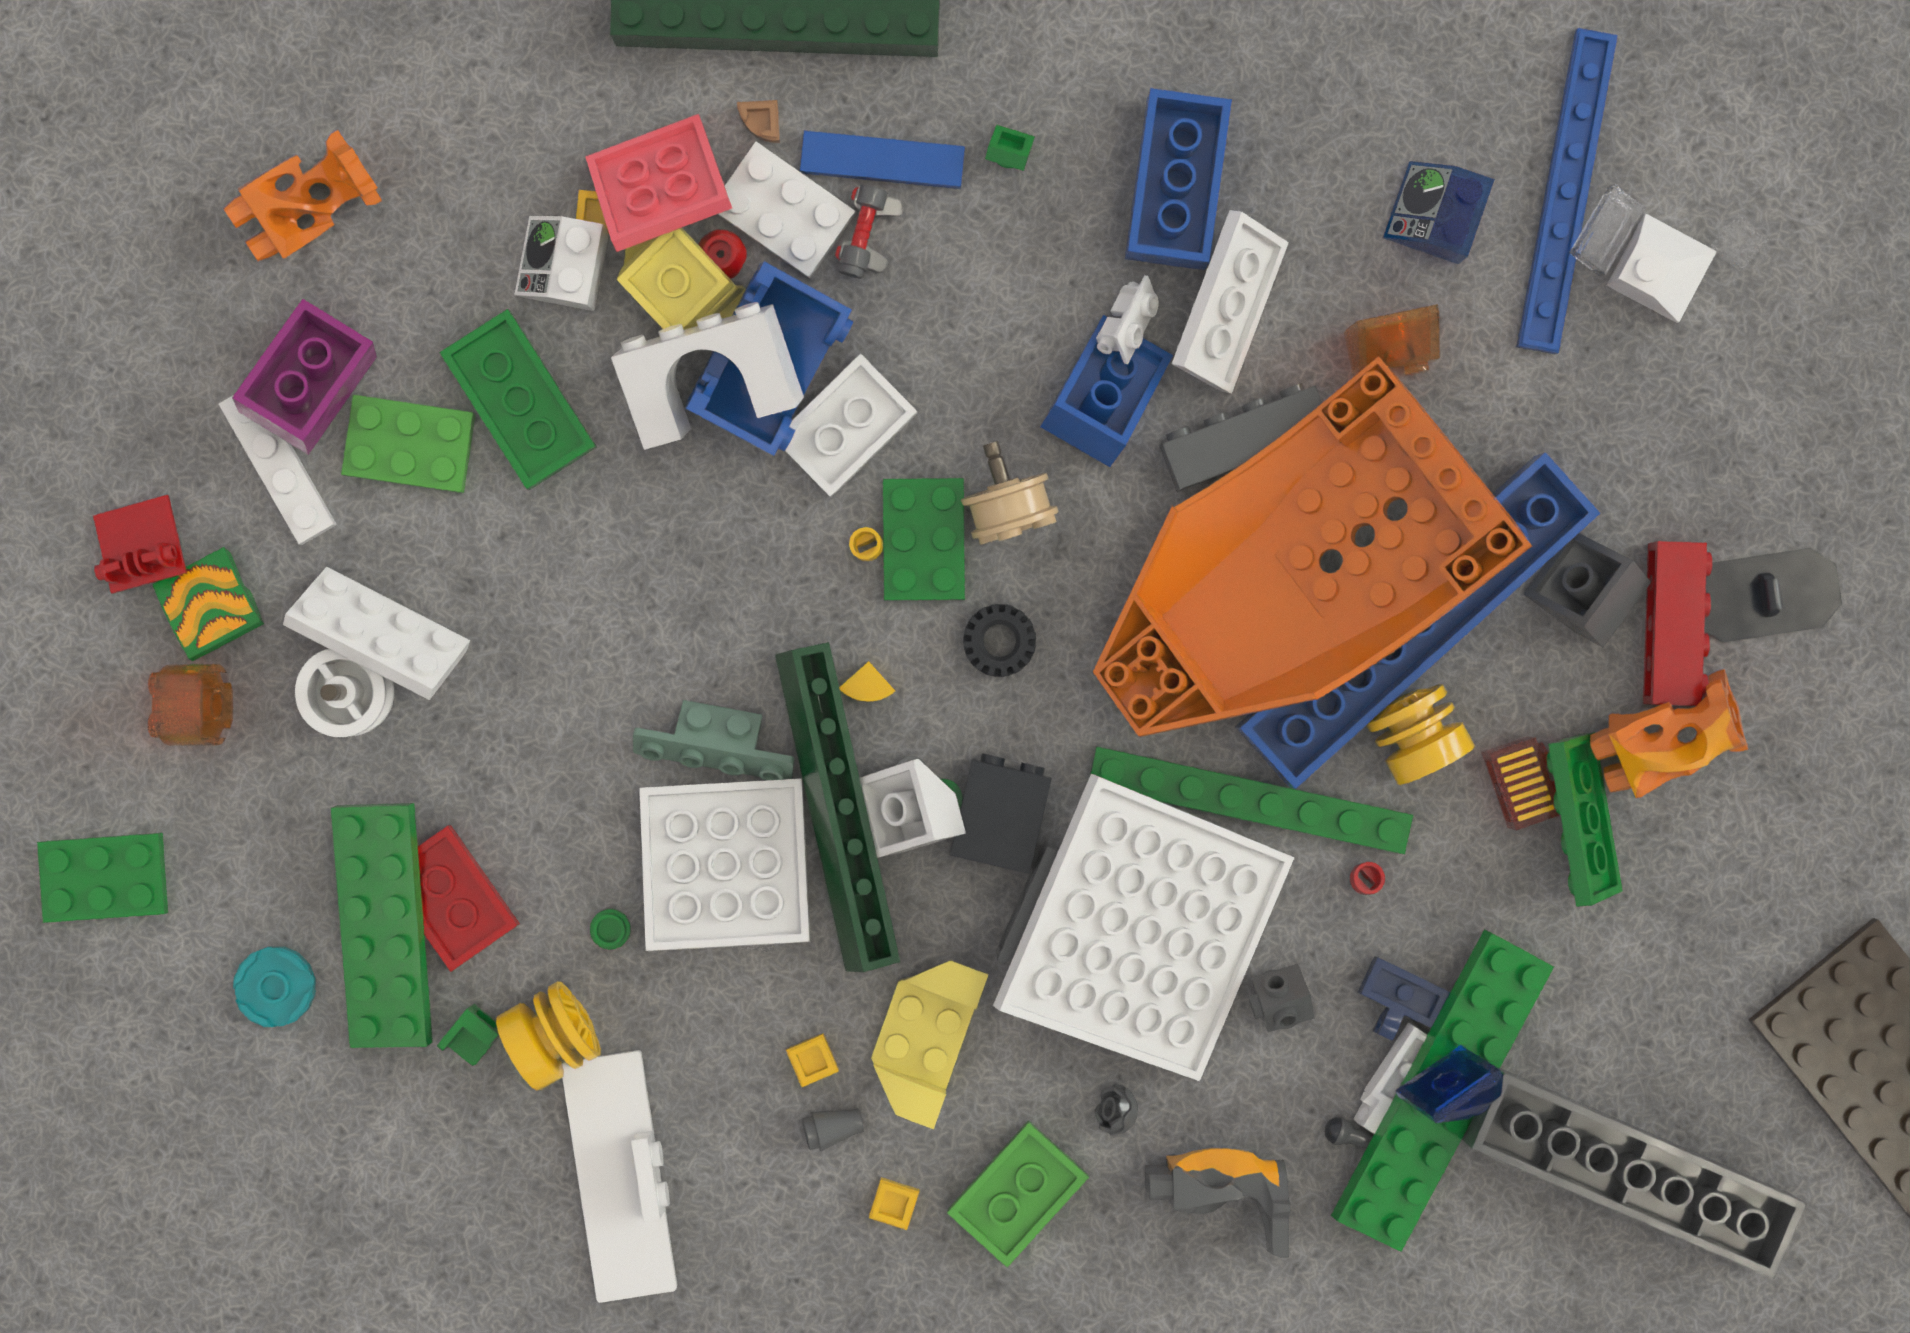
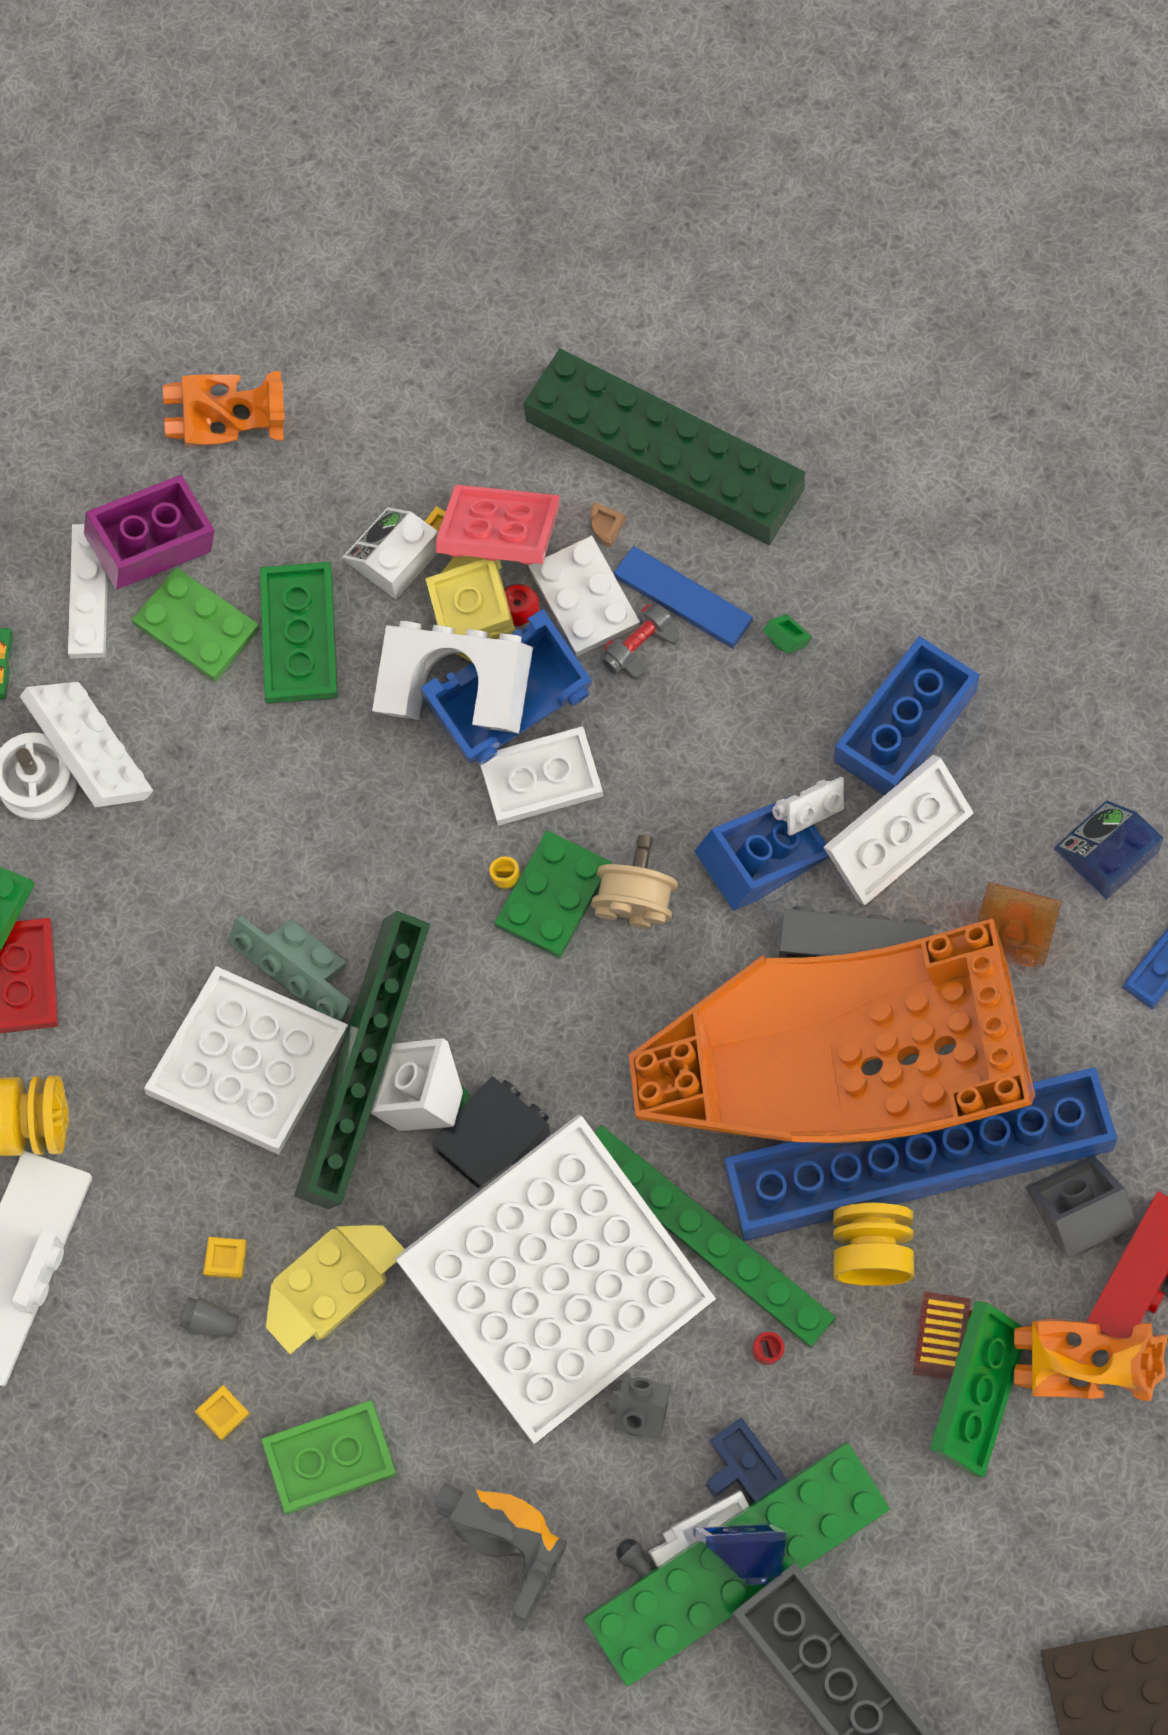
camera: 35 degrees right, 20 degrees down
(610, 929) = (126, 1066): green plate -> none
(867, 685) = (443, 982): yellow tile -> none
(999, 615) = (561, 980): black tyre -> none
(1117, 1110) = (452, 1431): dark grey plate -> none

